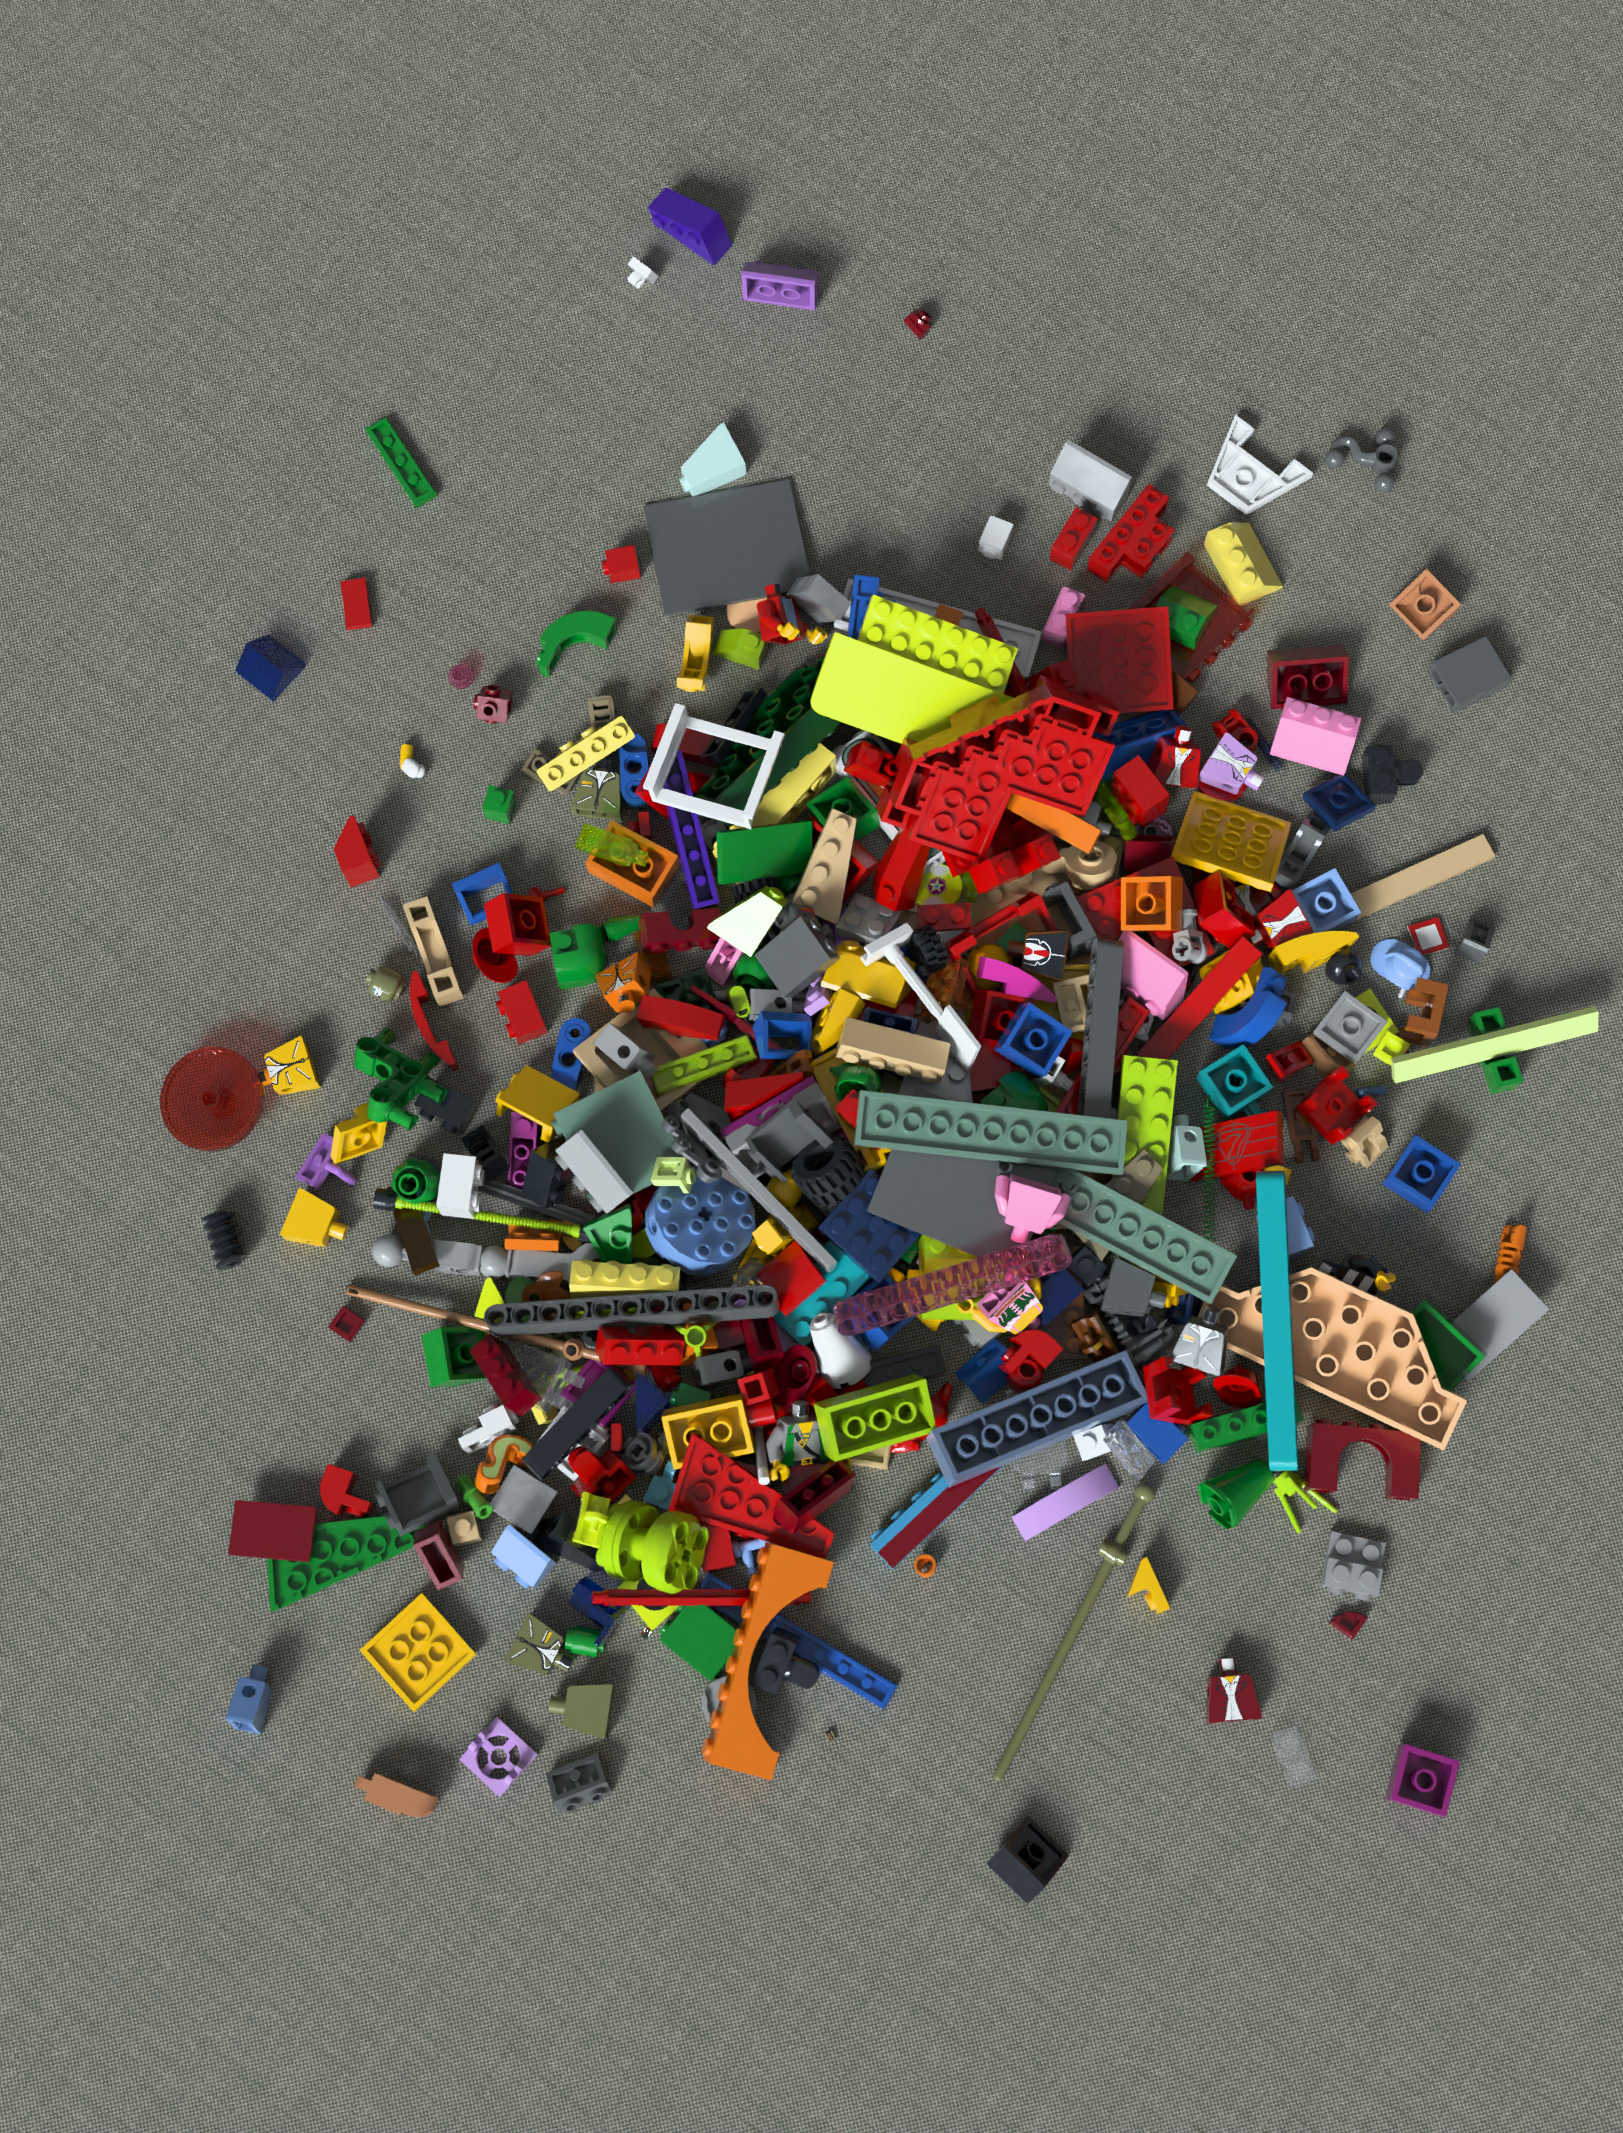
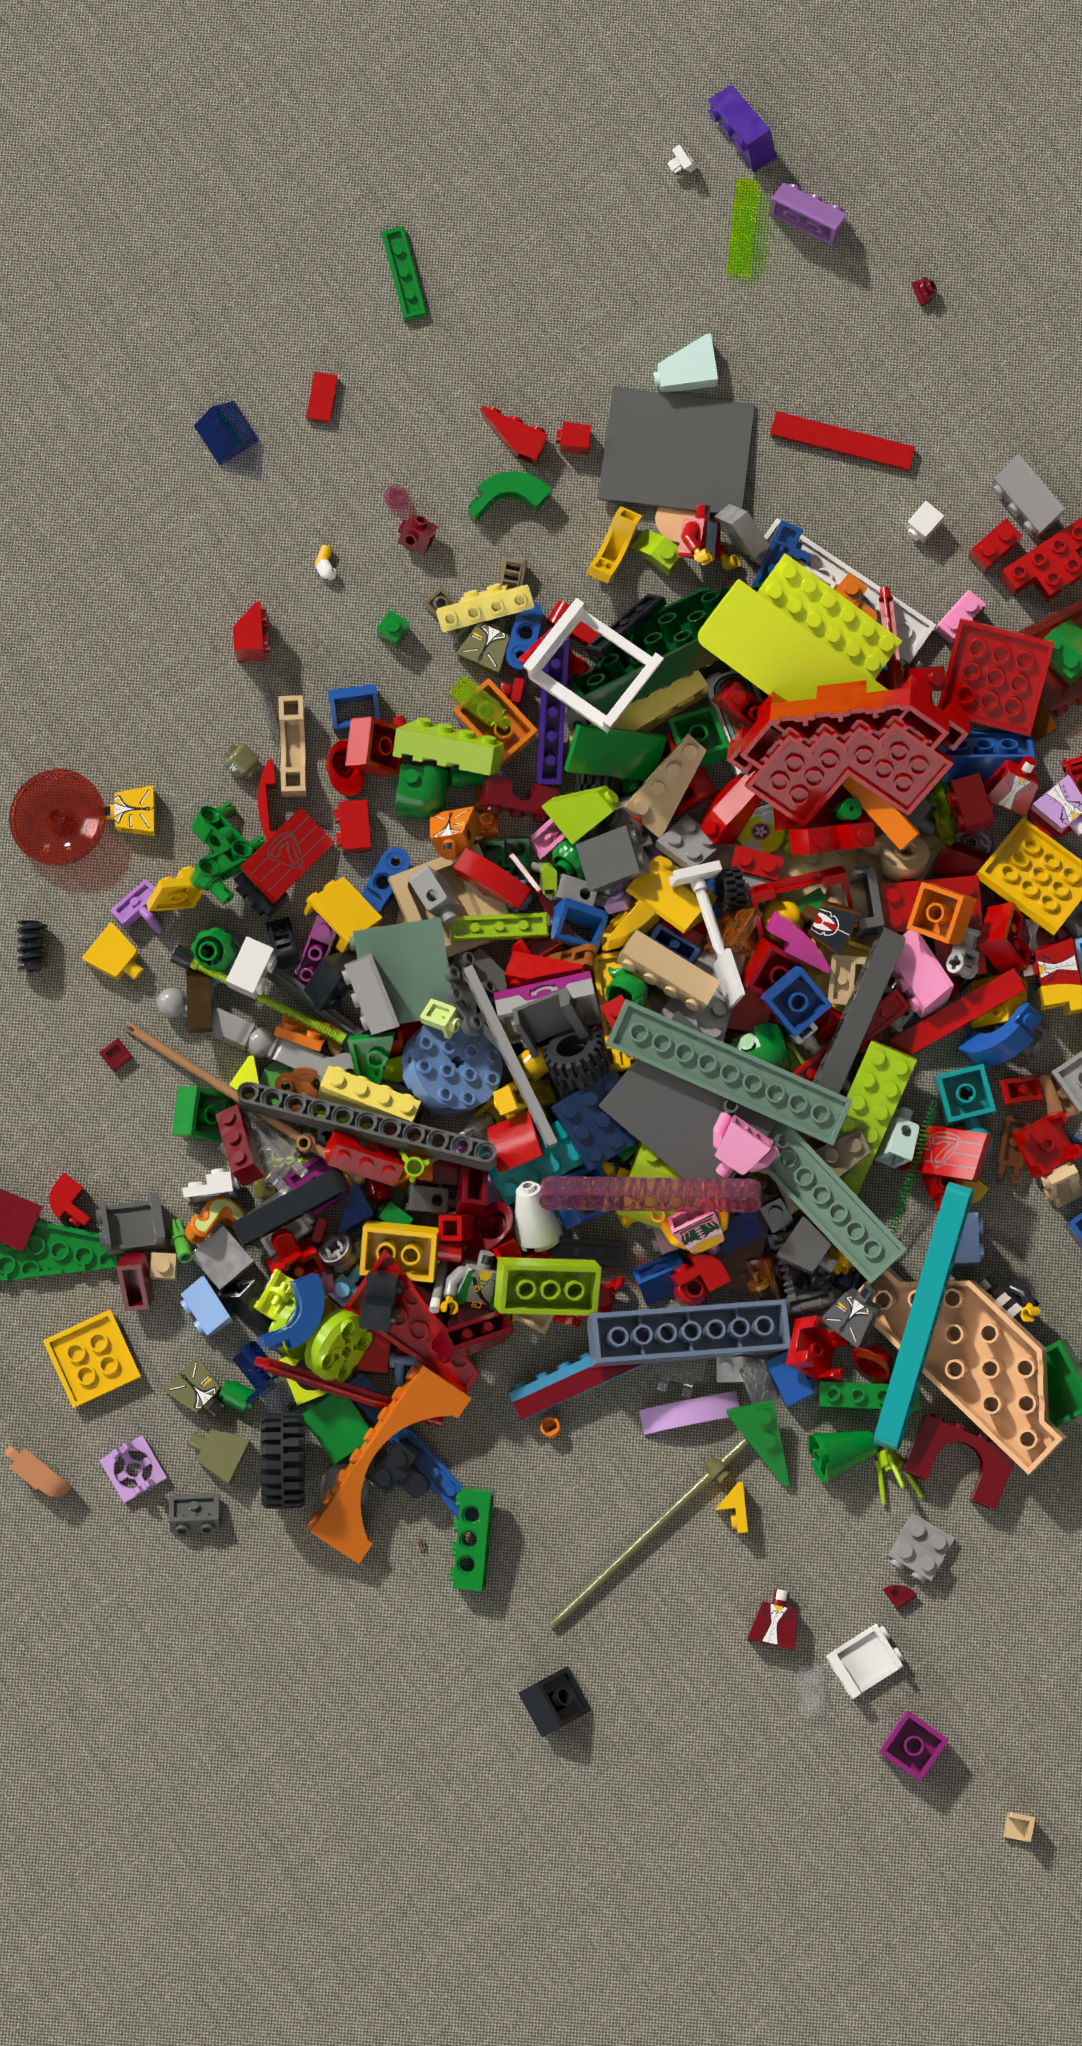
camera: 15 degrees right, 5 degrees up
(460, 1061) = (287, 855): none -> red tile
(565, 581) = (520, 439): none -> red slope
(593, 899) = (449, 746): none -> lime wedge
(632, 1532) = (306, 1318): none -> blue arch
(641, 1491) = (327, 1283): none -> clear pink plate
(655, 1695) = (282, 1460): none -> black tyre
(706, 1496) = (380, 1305): none -> black brick
(721, 317) = (743, 226): none -> clear neon green slope
(881, 1668) = (483, 1501): none -> green brick
(887, 487) = (842, 441): none -> red tile
(1018, 833) = (846, 810): none -> green piece
(1147, 1495) = (761, 1429): none -> green wing
(1338, 1704) = (865, 1660): none -> white panel
(1563, 1830) = (1019, 1826): none -> tan panel

